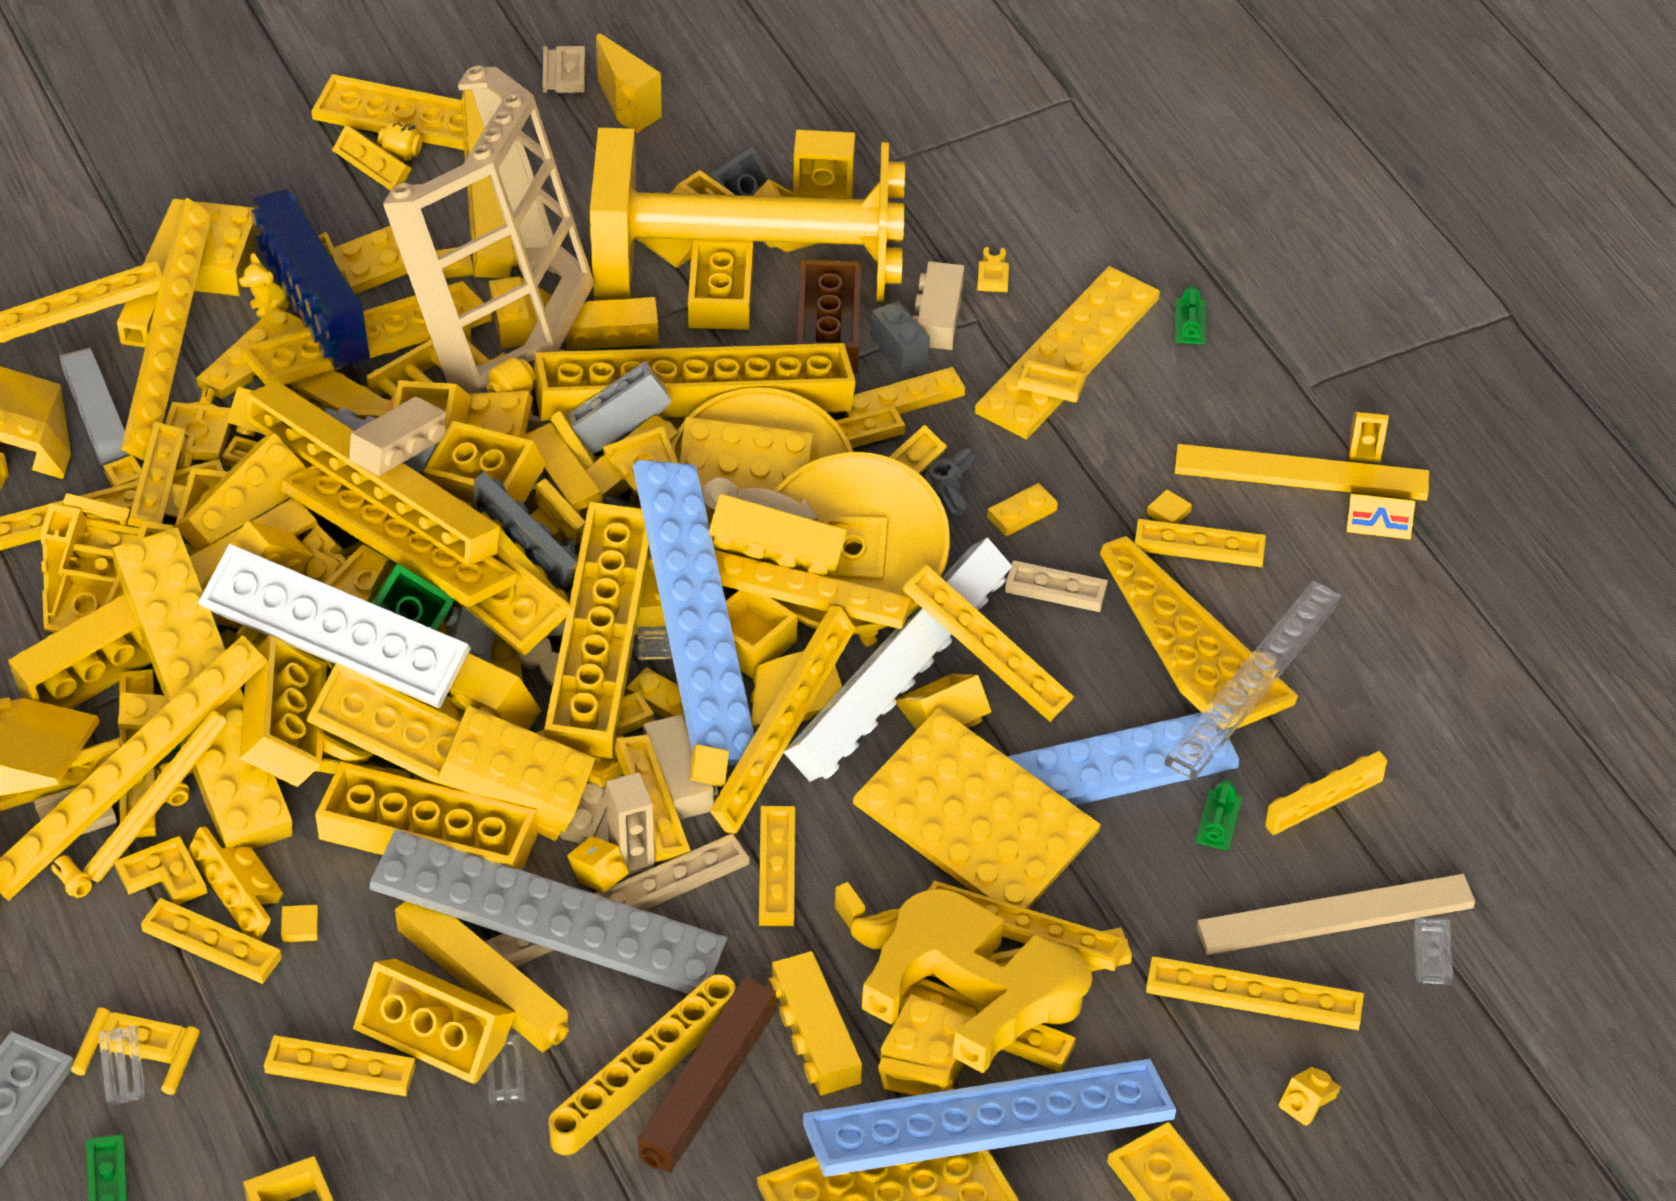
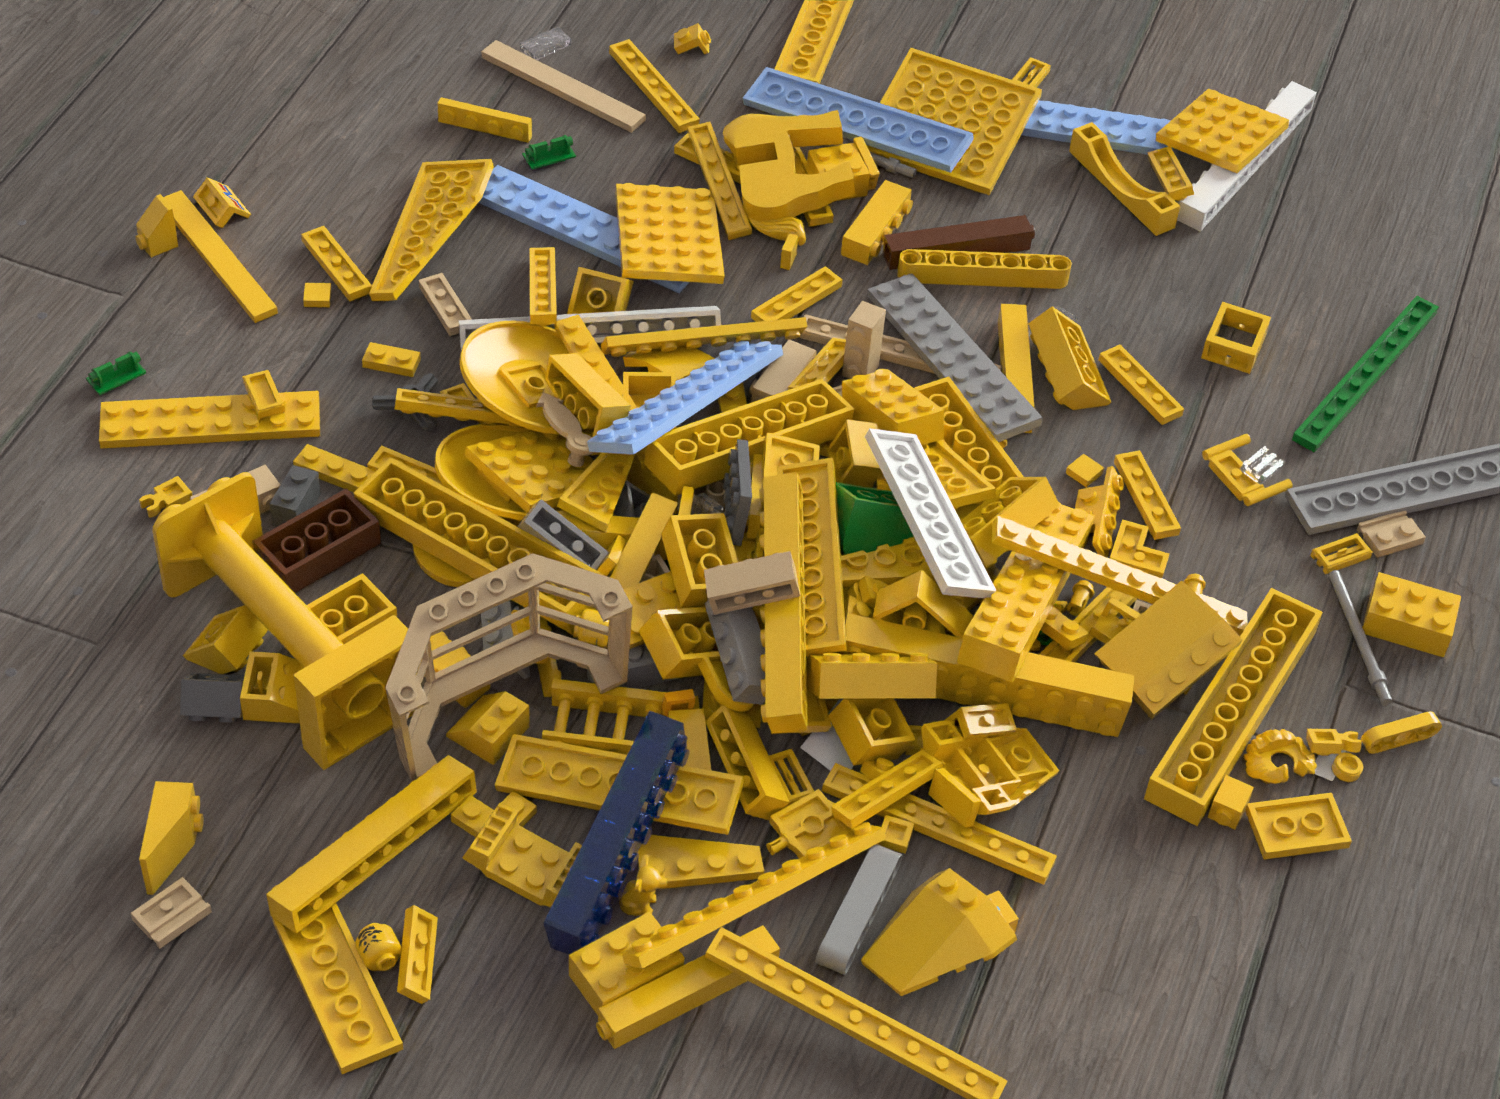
camera: 135 degrees left, 0 degrees up
(156, 796) = (1074, 538): yellow axle -> none
(598, 864) = (895, 357): yellow brick -> none
(708, 765) = (782, 339): yellow tile -> none
(824, 164) = (149, 642): yellow brick -> none
(1252, 681) = (437, 169): clear plate -> none

